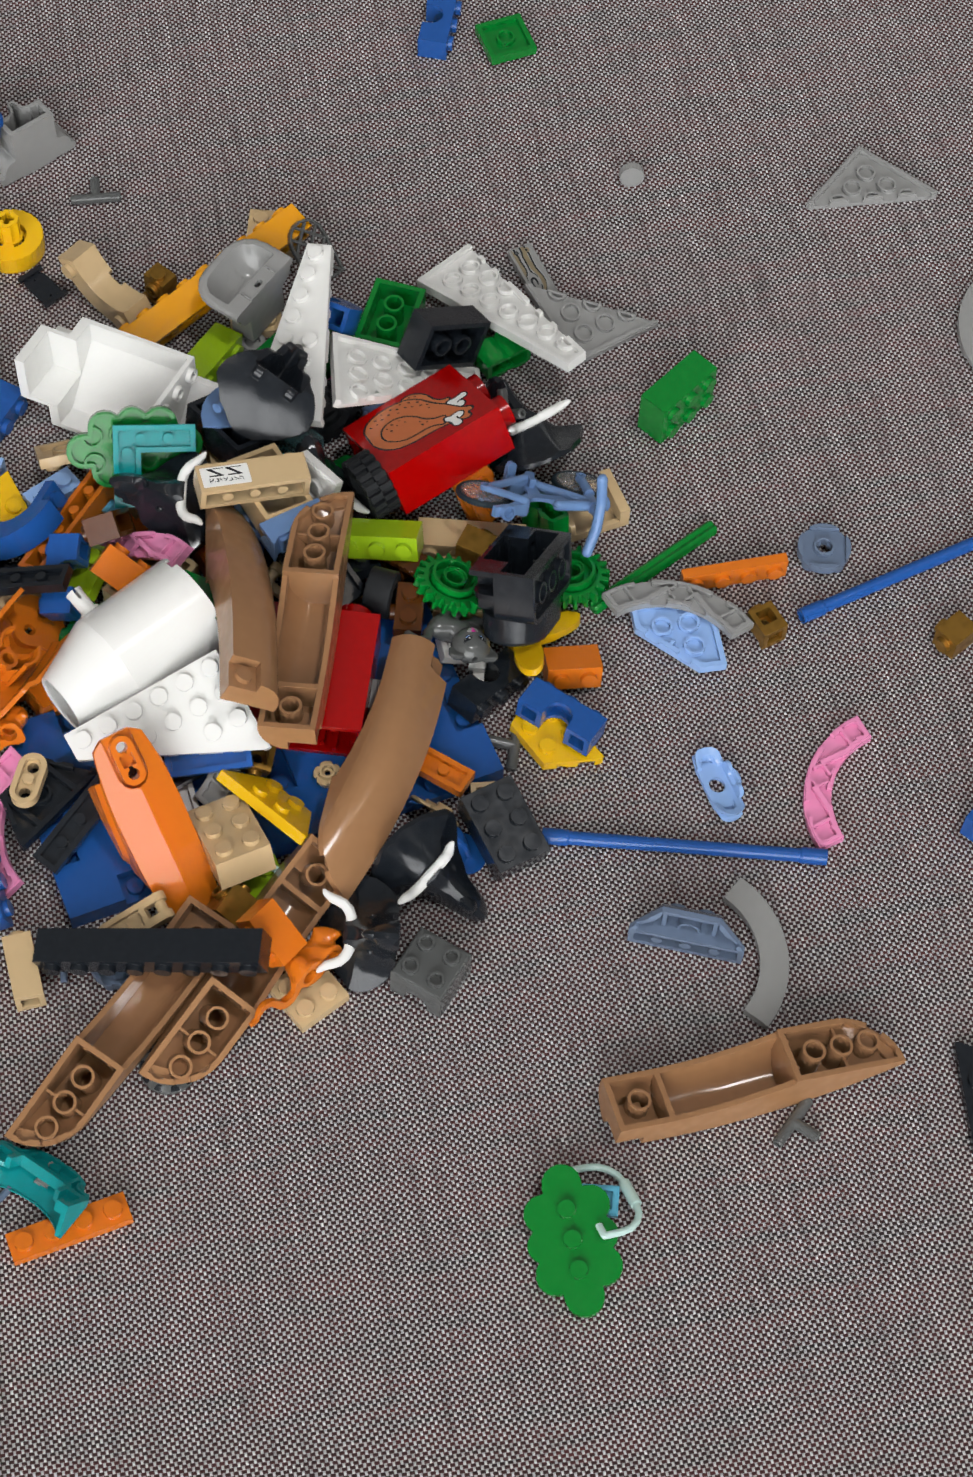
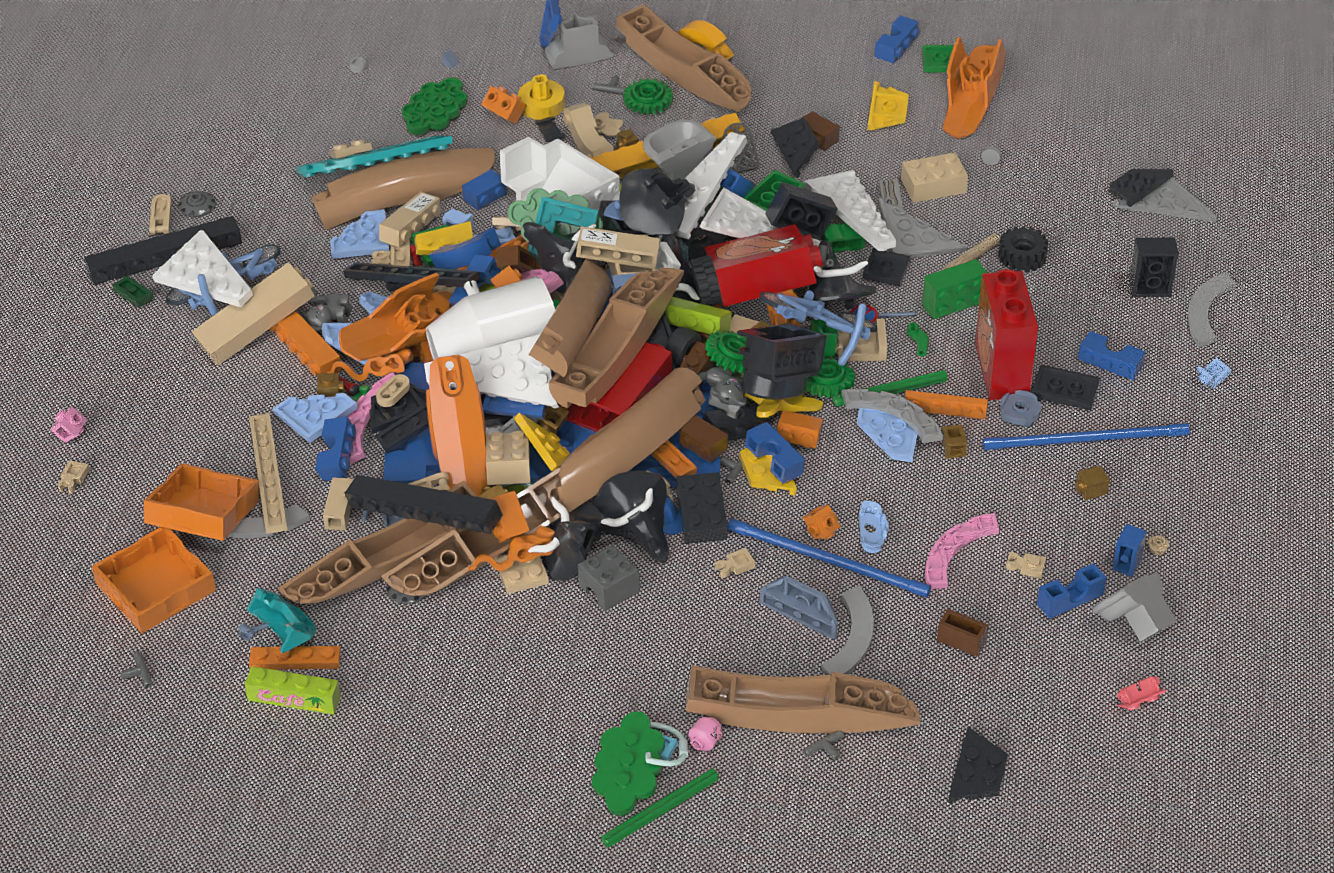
camera: 25 degrees right, 15 degrees down
(92, 1284) = (292, 690): none -> lime brick
(119, 258) = (607, 126): none -> tan plate
(153, 199) = (648, 96): none -> green gear
(181, 133) = (684, 62): none -> medium nougat slope
(193, 84) = (707, 36): none -> light orange arch
(381, 224) = (796, 143): none -> black wing
(398, 195) = (824, 130): none -> reddish brown brick
(466, 727) = (703, 439): none -> reddish brown brick
(470, 133) = (887, 107): none -> yellow wing
(567, 74) = (971, 85): none -> orange piece
(576, 228) = (934, 177): none -> tan piece
(577, 891) = (738, 561): none -> tan plate
(578, 385) = (886, 267): none -> black plate
(581, 461) = (872, 313): none -> piece
(636, 1290) = (659, 808): none -> green axle
(649, 1163) = (705, 733): none -> bright pink head
(658, 479) = (919, 338): none -> green arm
(659, 800) = (821, 522): none -> orange brick
(673, 334) = (965, 256): none -> tan piece
(734, 294) = (1023, 239): none -> black tyre
(782, 458) = (1005, 333): none -> red brick
(828, 170) = (1139, 183): none -> black wing
(865, 501) = (1066, 387): none -> black plate
(881, 440) = (1124, 362): none -> blue arch
(897, 908) = (962, 632): none -> reddish brown brick
(906, 297) = (1153, 267): none -> black brick
(928, 776) = (1030, 564): none -> tan plate

